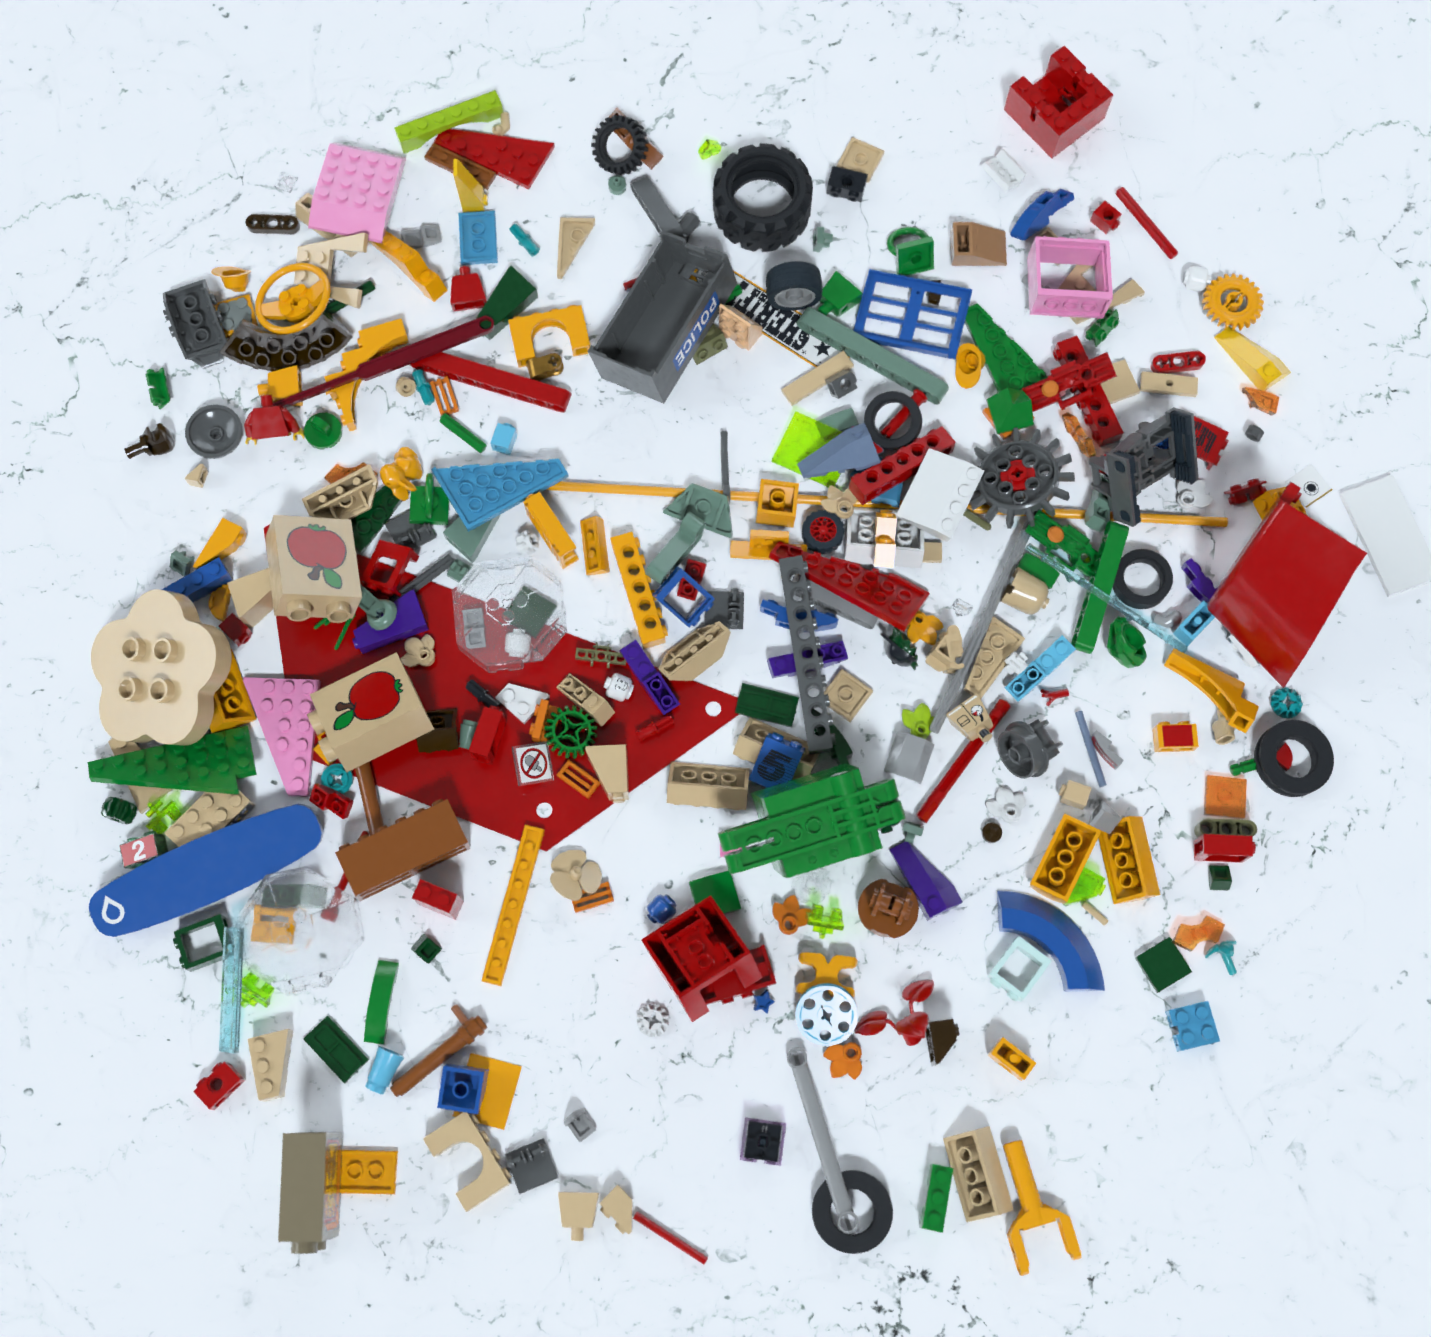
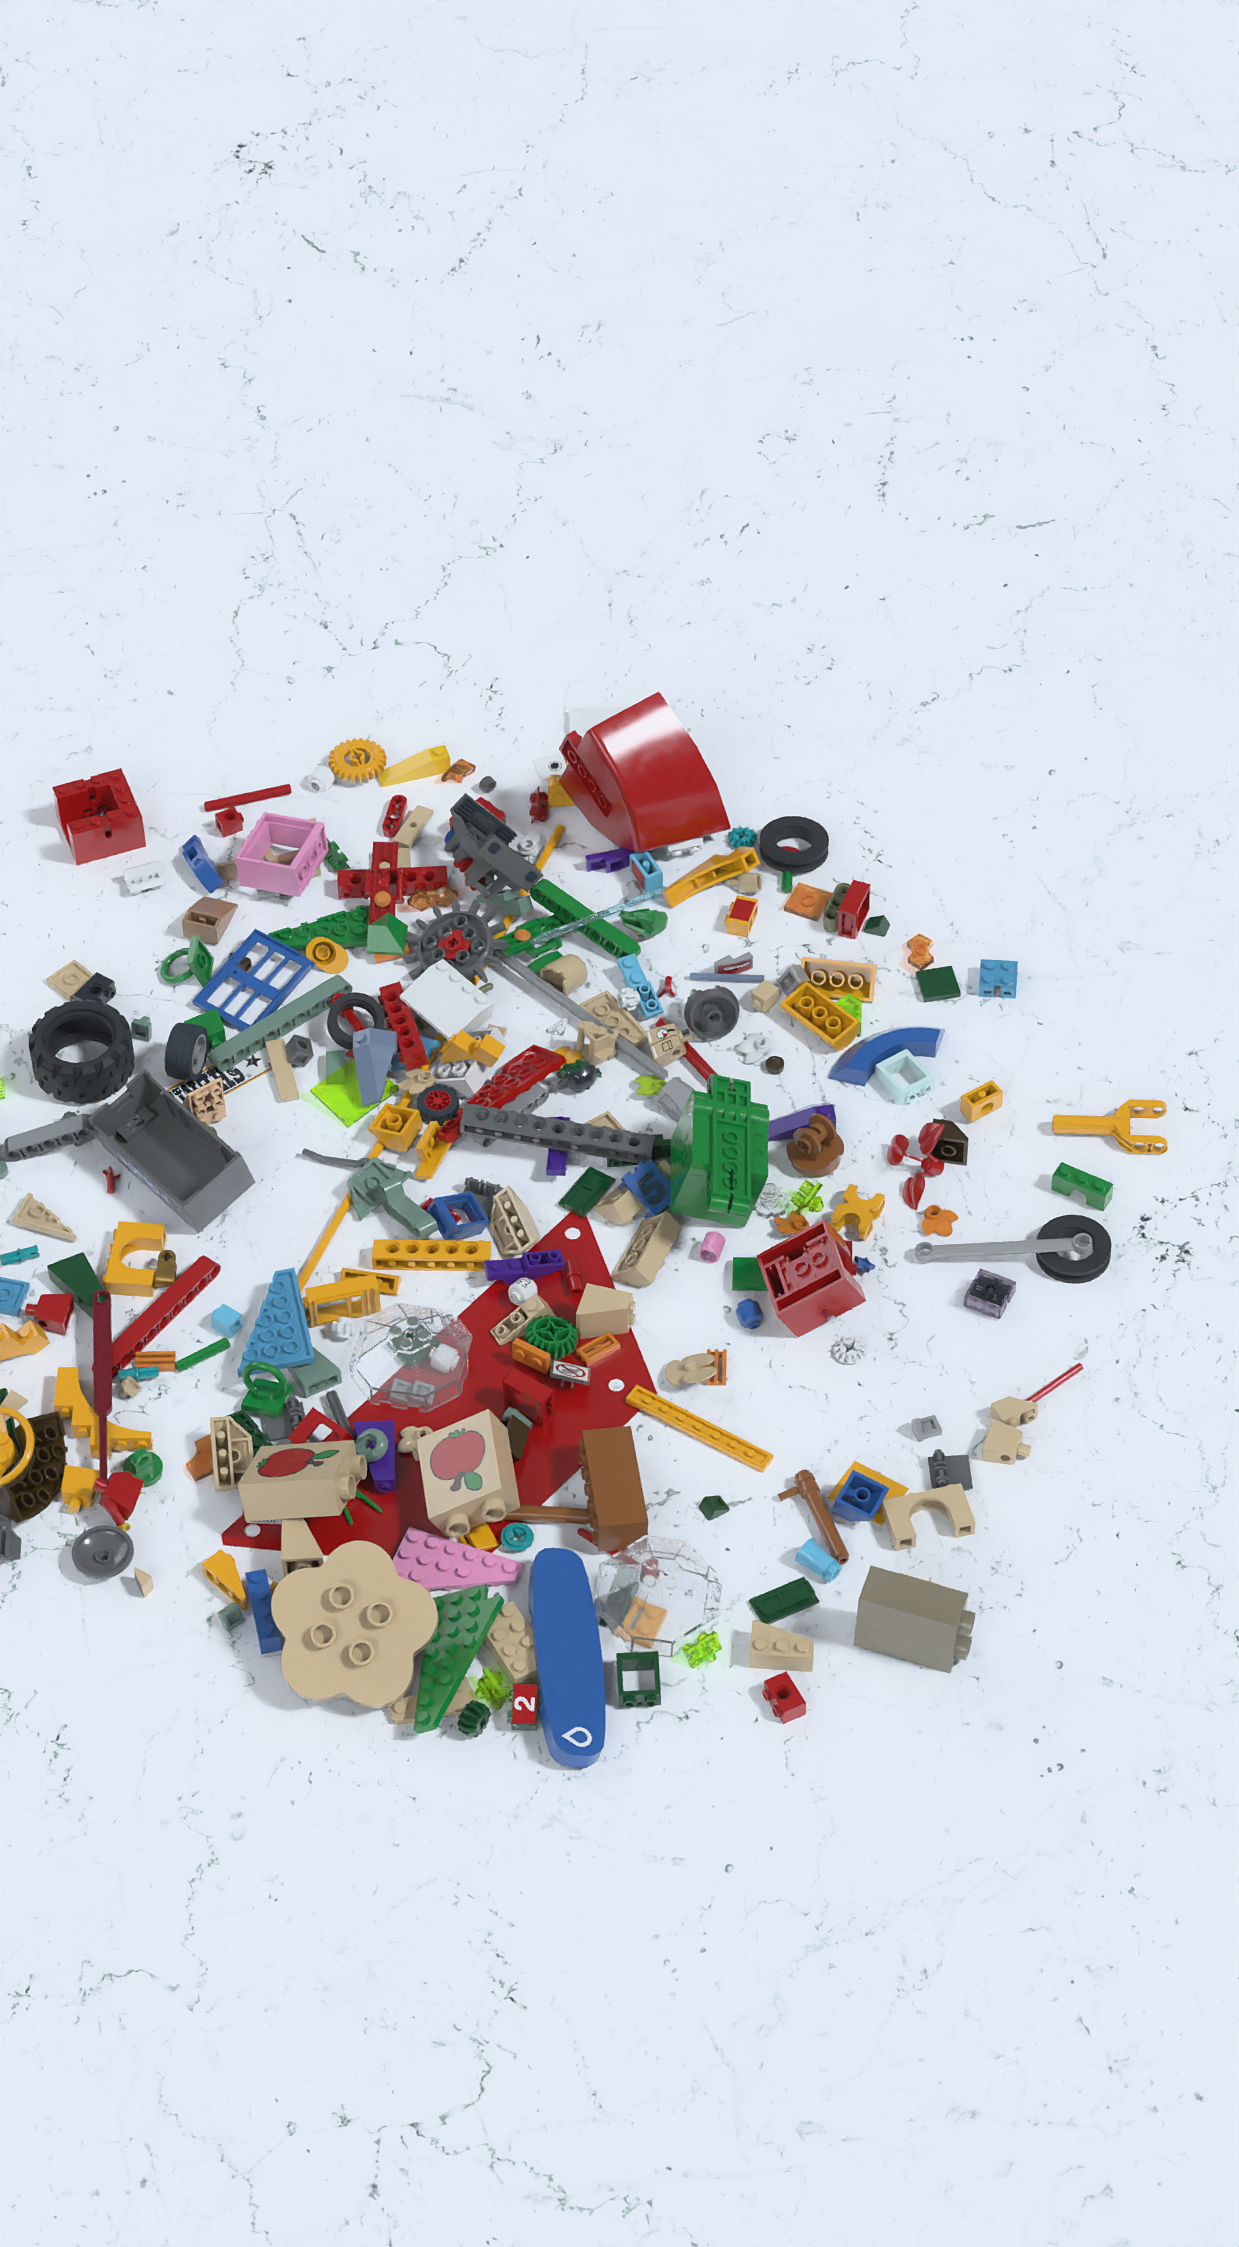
camera: 70 degrees left, 25 degrees down
(153, 443) = (86, 1610): dark brown piece -> none
(159, 394) = (26, 1595): green hinge -> none
(231, 989) = (695, 1659): clear light blue tile -> none
(330, 799) = (538, 1541): red slope -> none
(380, 1002) = (754, 1550): green slope -> none
(401, 472) = (222, 1403): light orange animal -> none
(437, 899) = (673, 1472): red brick -> none
(458, 570) = (348, 1391): sand green tile -> none
(481, 694) = (483, 1400): black axle -> none
(520, 700) = (493, 1377): white wing -> none
(595, 652) = (484, 1296): olive piece -> none
(822, 1023) = (898, 1212): wedge -> none
(824, 621) = (507, 1154): blue slope -> none
(978, 1174) = (1080, 1151): tan slope -> none
(1095, 913) = (877, 1015): tan piece -> none
(1153, 559) = (592, 880): black tyre -> none
(1226, 950) = (940, 937): teal plant -> none

